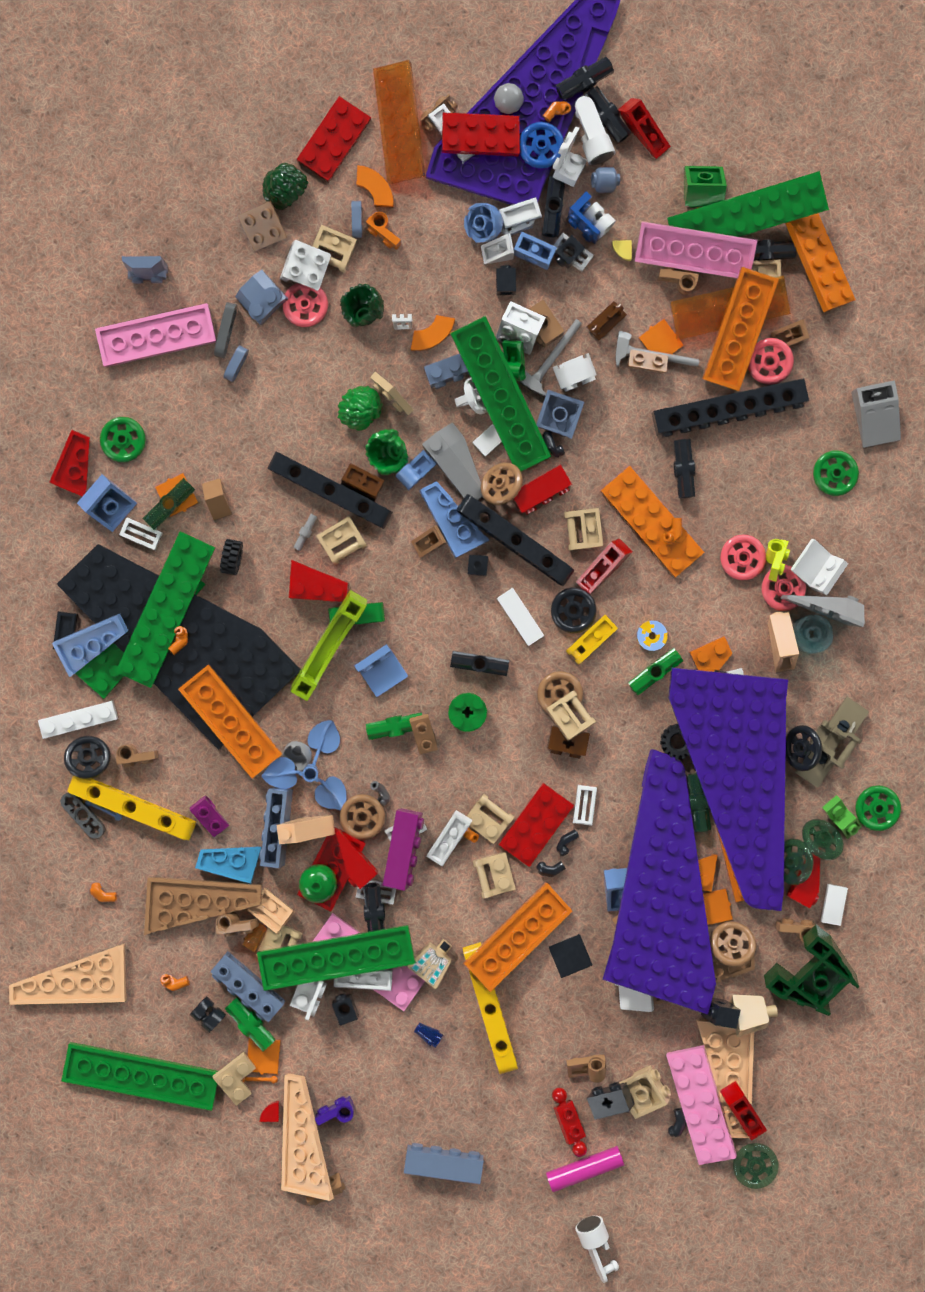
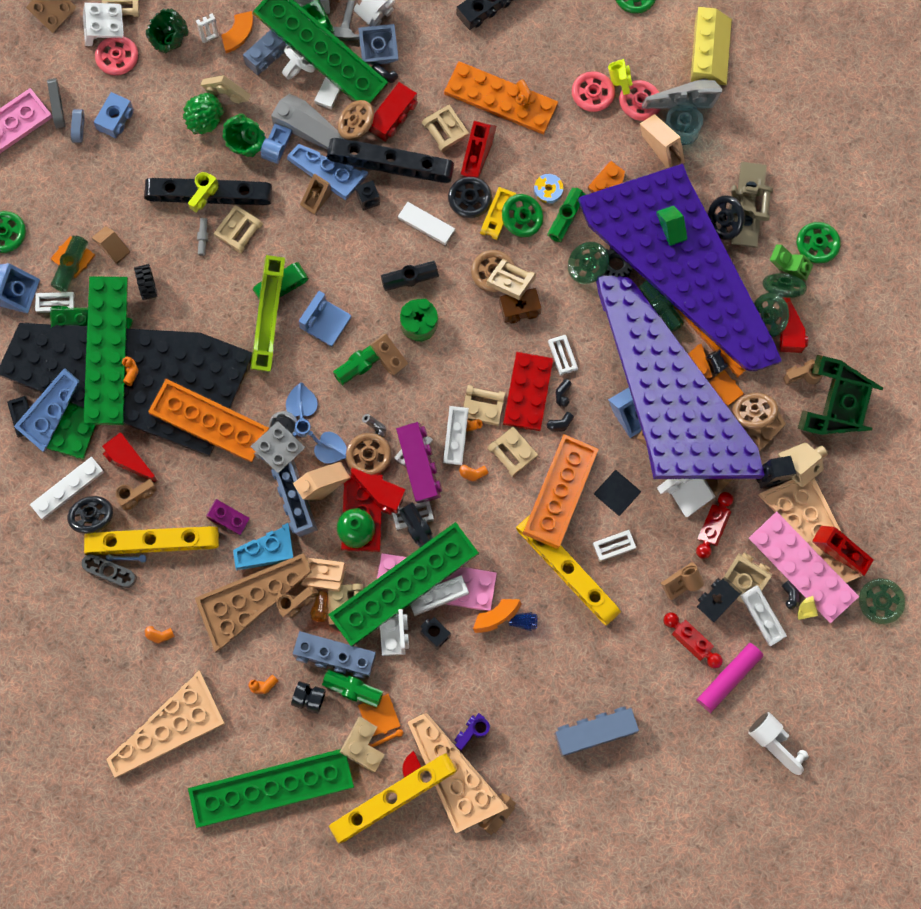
camera: 30 degrees left, 15 degrees down
(141, 714) = (126, 457): none -> red slope
(142, 555) = (68, 316): none -> green plate
(253, 1137) = (379, 805): none -> yellow beam
(260, 297) = (75, 64): sand blue slope -> none
(277, 358) = (113, 105): none -> medium blue brick
(280, 780) = (277, 447): none -> light grey hinge
(315, 501) = (200, 198): none -> neon yellow plate
(315, 585) = (232, 273): red wedge -> none
(362, 482) = (233, 170): reddish brown hinge -> none
(407, 1021) = (490, 620): none -> orange tile
(432, 962) = (494, 553): torso -> none
(447, 879) = (472, 474): none -> orange arm
(540, 1003) = (599, 551): none -> white tile
(627, 660) = (527, 201): none -> green plate
(641, 1029) = (714, 525): none -> red plate
(642, 1132) = (763, 615): none -> white tile
(664, 738) = (577, 253): none -> clear green plate
(684, 468) = (506, 43): black piece -> none
(685, 1144) = (807, 608): none -> light yellow tile
(722, 880) = (717, 361): none -> black bush
(746, 738) = (672, 225): none -> green slope
(818, 567) = (660, 70): white bracket -> none
(834, 904) = (825, 339): white tile -> none
(879, 565) = (711, 45): none -> light yellow slope

